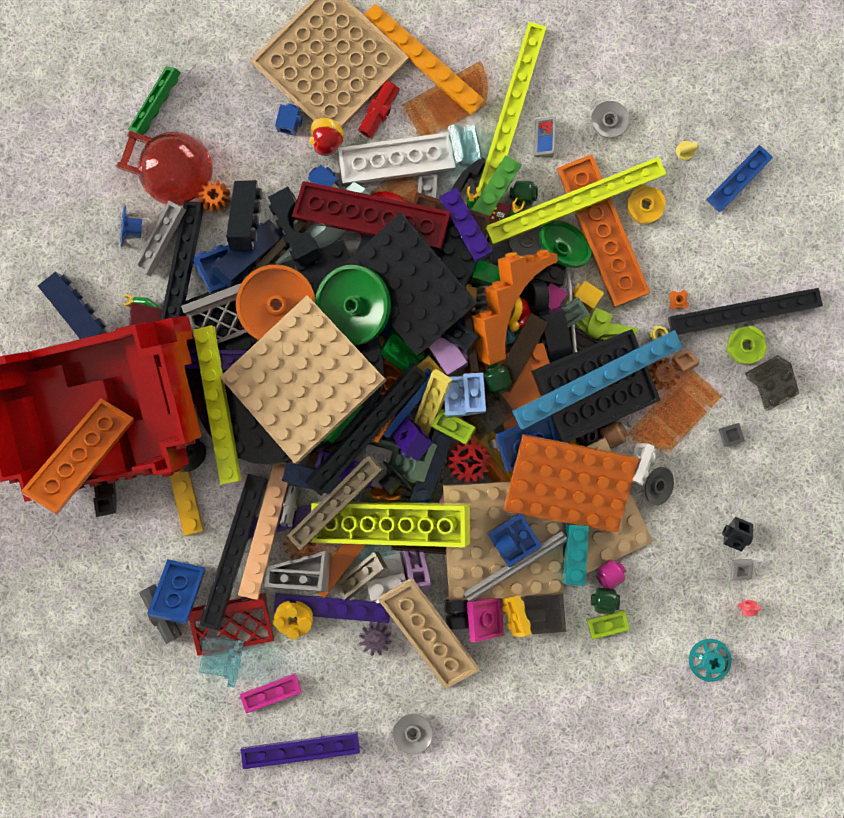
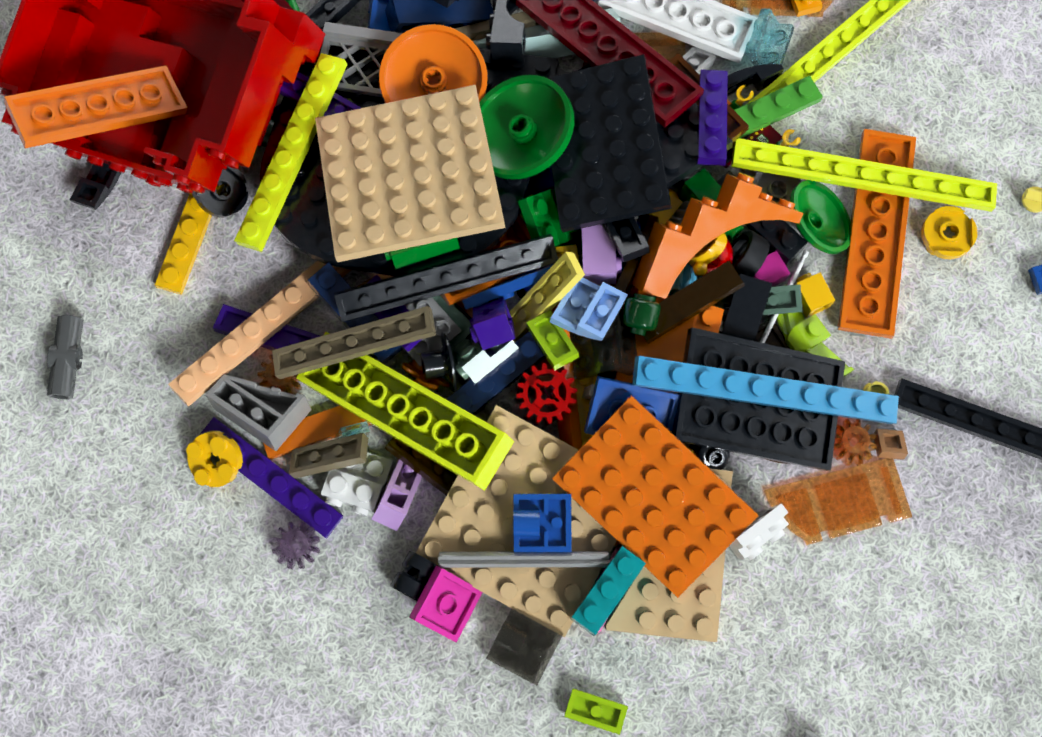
camera: 30 degrees right, 10 degrees down
(176, 592) = (100, 340): blue plate -> none
(221, 658) = (99, 452): clear light blue bracket -> none
(233, 552) = (196, 335): black tile -> none
(234, 606) = (139, 397): red fence -> none
(270, 693) = (128, 532): dark pink plate -> none
(290, 506) = (298, 323): light grey pin -> none
(300, 750) = (116, 625): dark purple plate -> none
(412, 743) = (249, 692): light grey dish -> none
(428, 633) = (364, 576): tan plate -> none
(516, 616) = (484, 633): yellow plate -> none
(525, 192) = (810, 132): dark green head -> none
(545, 137) = (870, 88): slope -> none
(605, 601) = (610, 678): dark green head -> none
(611, 574) = (638, 649): dark pink head -> none
(614, 434) = (747, 476): medium nougat head -> none
(616, 113) = (968, 103): light grey dish -> none
(659, 485) = (773, 580): dark grey dish -> none
(683, 299) = (918, 370): orange plate -> none
(731, 435) = (897, 570): dark grey plate -> none
(738, 534) = (833, 699): black brick -> none
(757, 344) = (995, 478): lime plate -> none
(774, 381) = (991, 539): clear smoke bracket -> none

